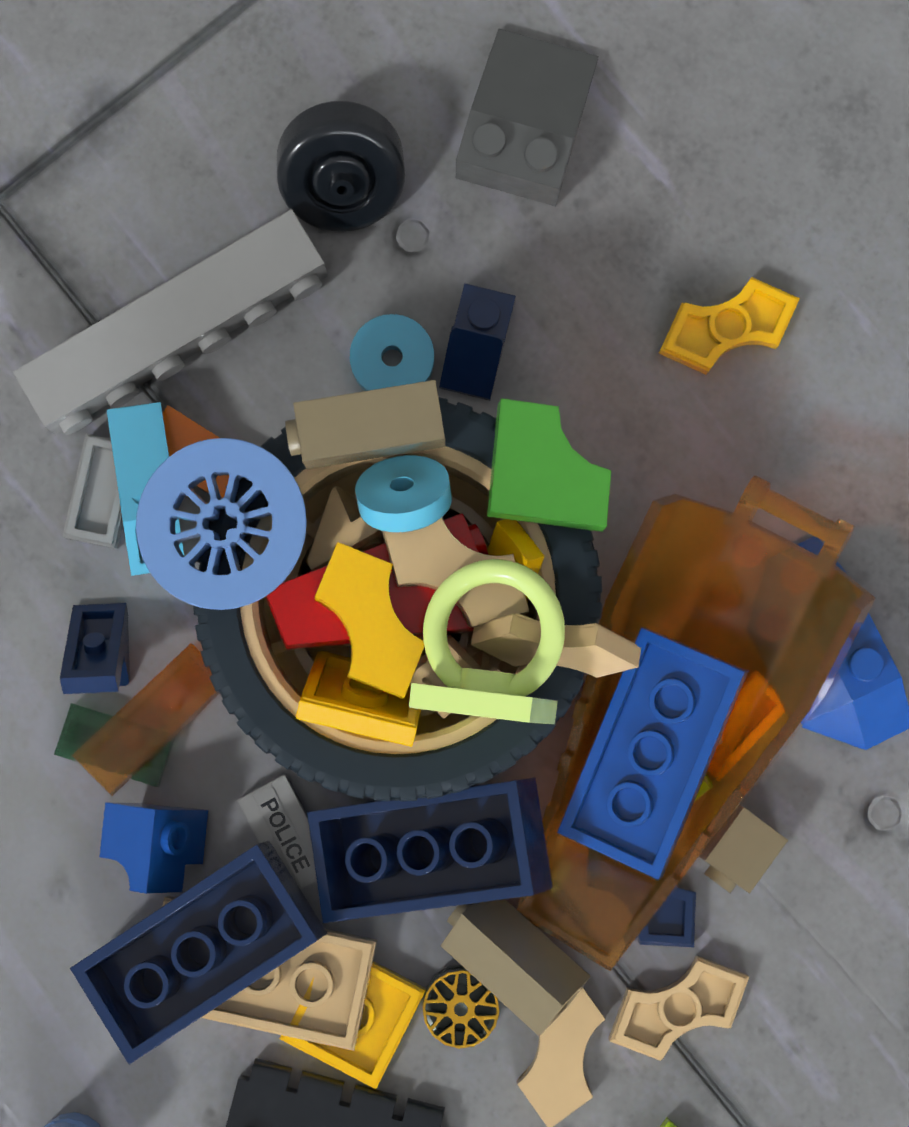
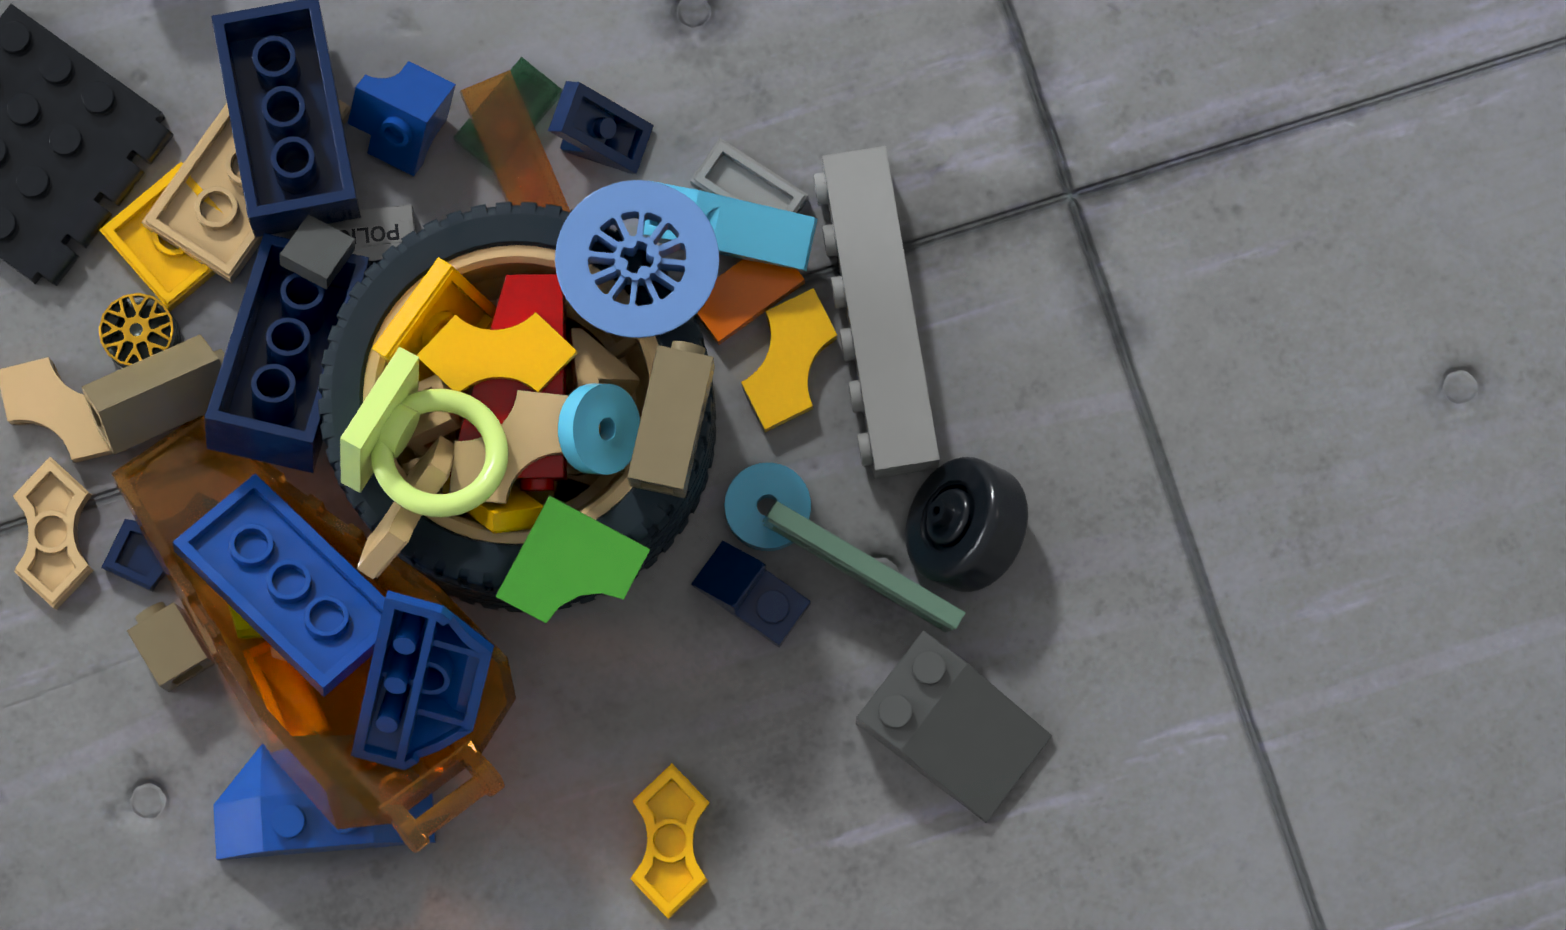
camera: 115 degrees right, 5 degrees down
(226, 392) = (780, 384): none -> yellow tile
(322, 862) = (317, 251): none -> dark grey tile
(417, 243) = (863, 567): none -> sand green tile
(701, 581) = (420, 683): none -> blue wedge

